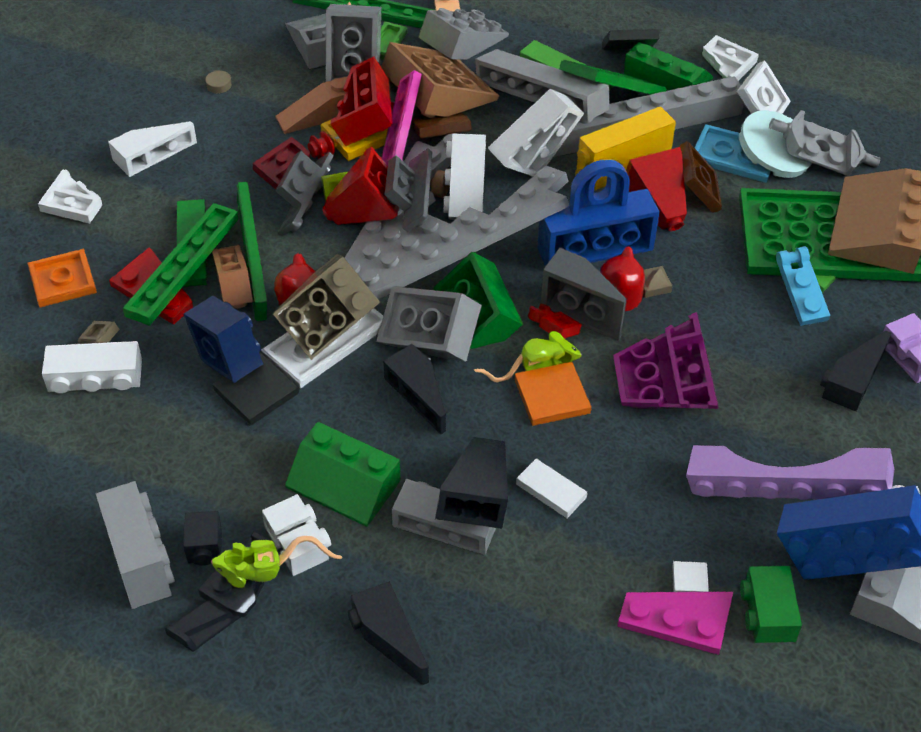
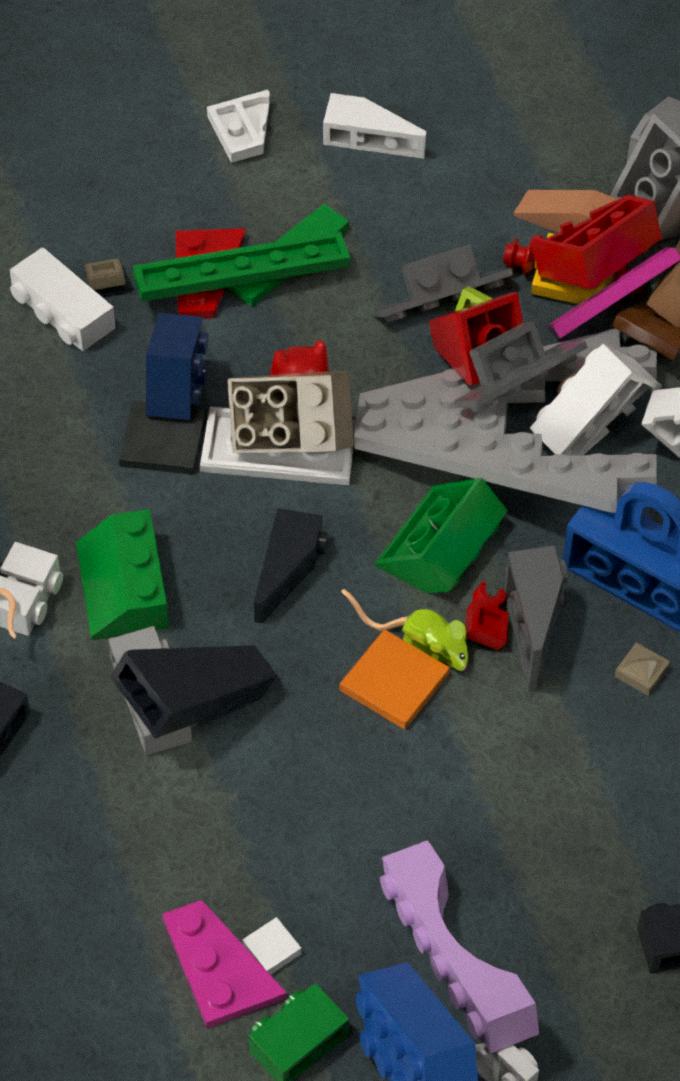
camera: 50 degrees right, 5 degrees up
(61, 278) = (146, 196): orange tile -> none
(218, 81) = (522, 110): dark tan tile -> none
(232, 276) = (272, 314): nougat slope -> none
(251, 252) = (322, 302): green tile -> none
(276, 162) = (483, 238): dark red wing -> none
(431, 321) = (367, 514): light grey slope -> none
(551, 488) = (273, 756): white tile -> none
(626, 276) = (597, 638): red piece -> none
(667, 370) = (520, 762): magenta wedge -> none

